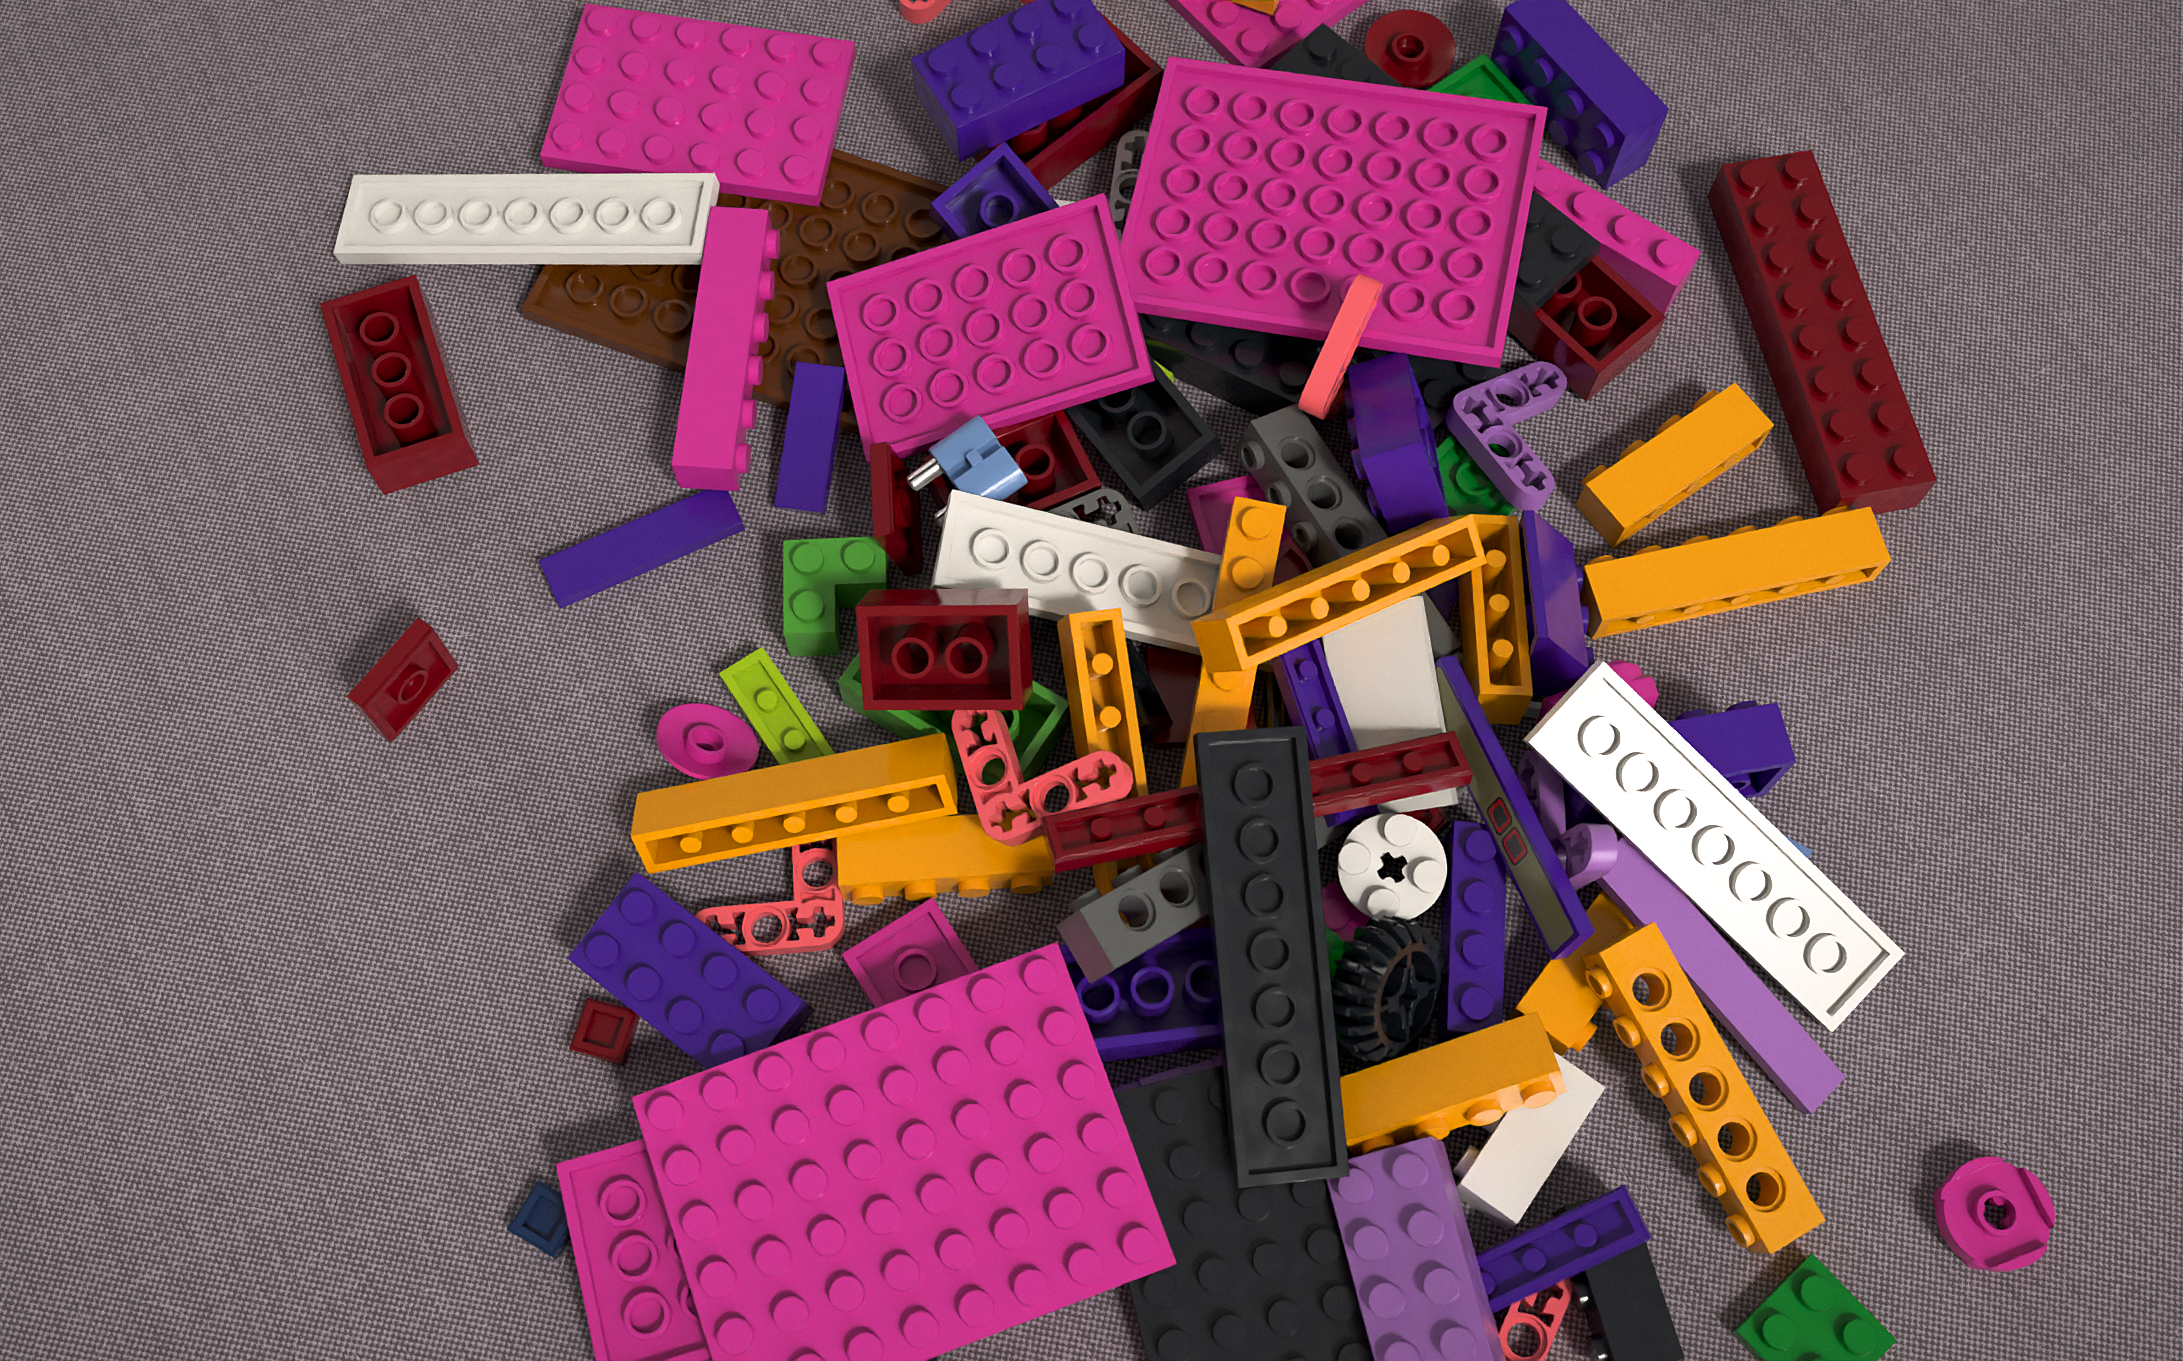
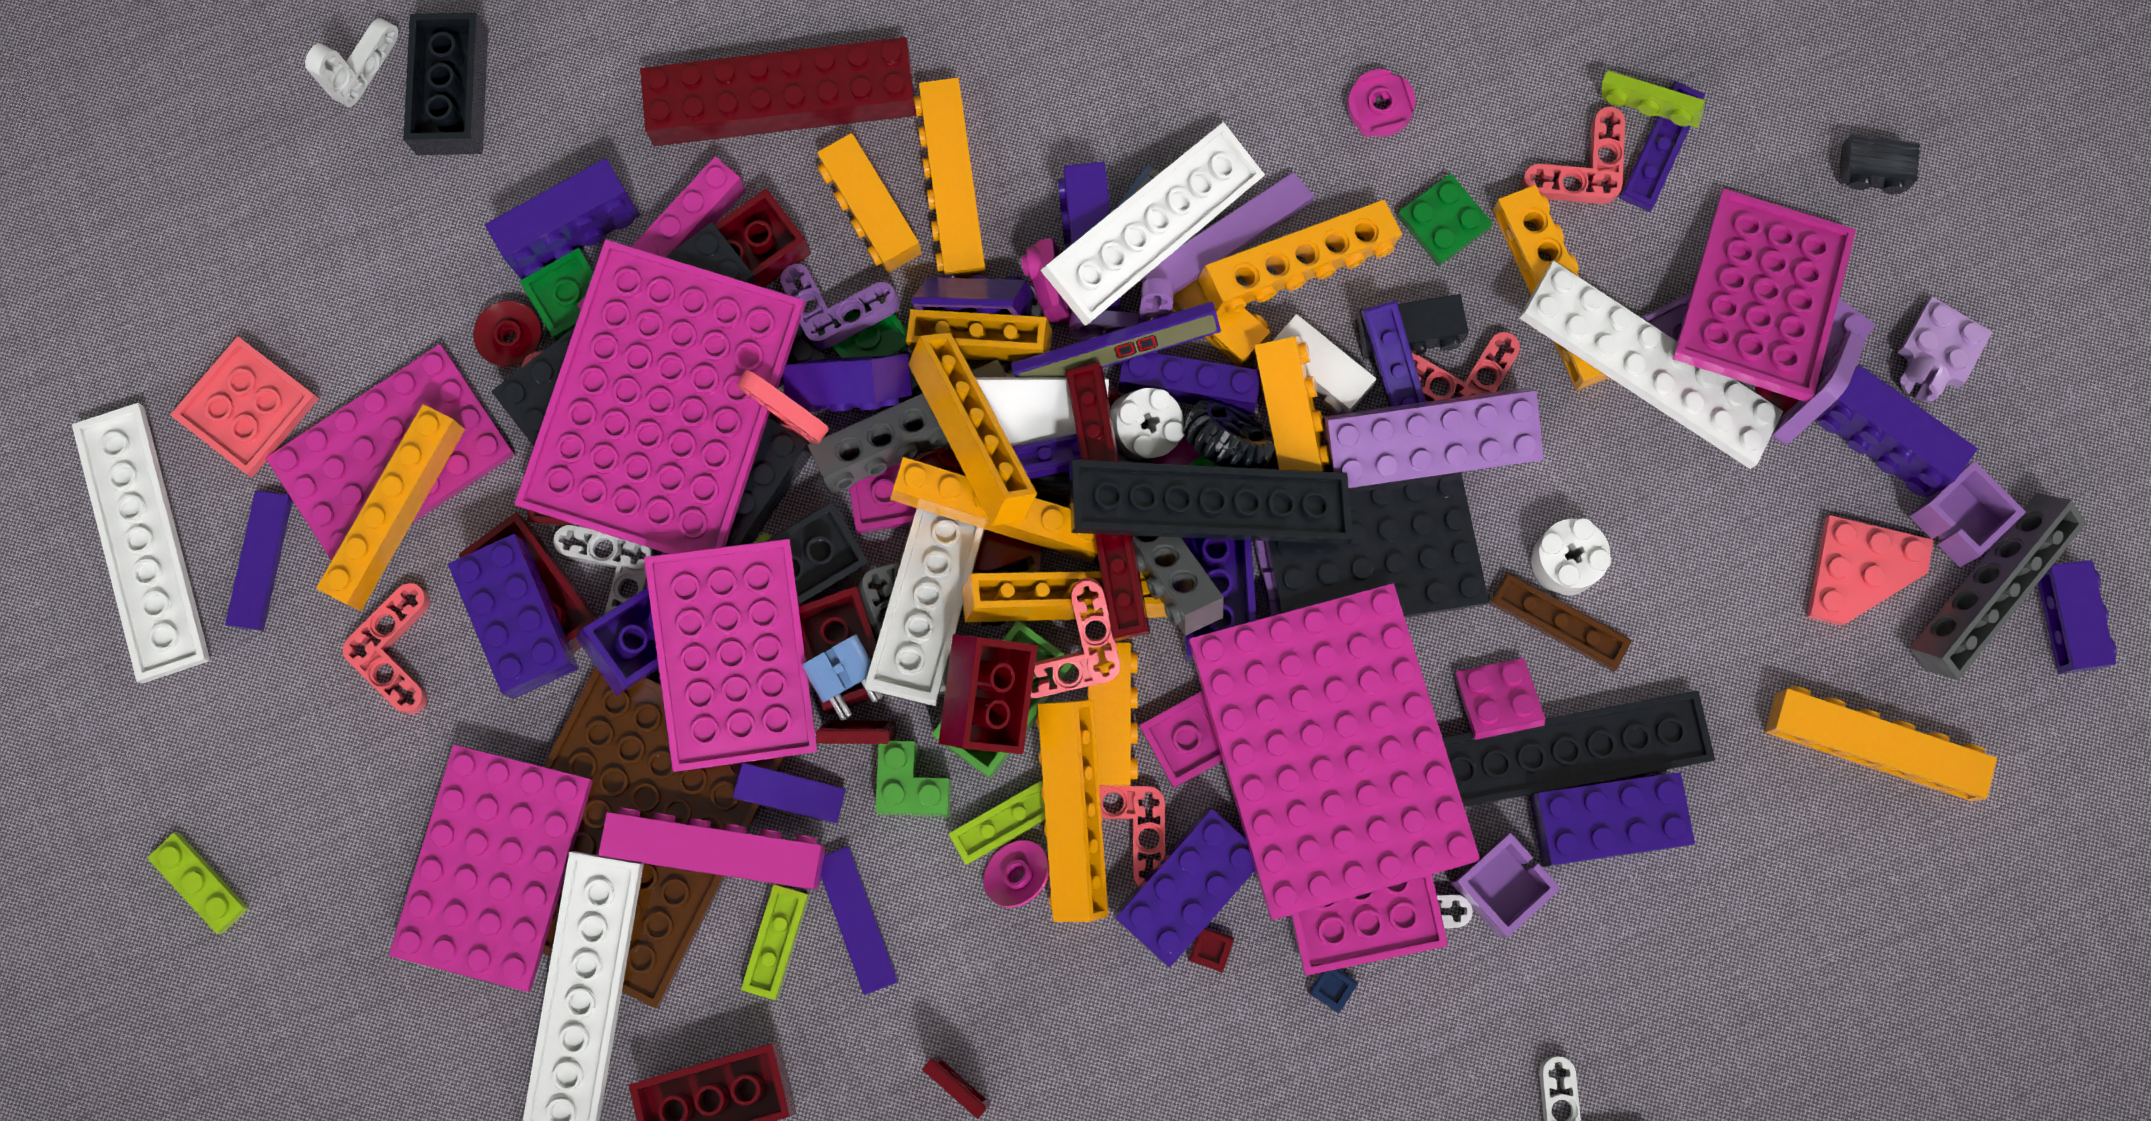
camera: 80 degrees left, 10 degrees up
(605, 444) = (775, 942): none -> lime plate

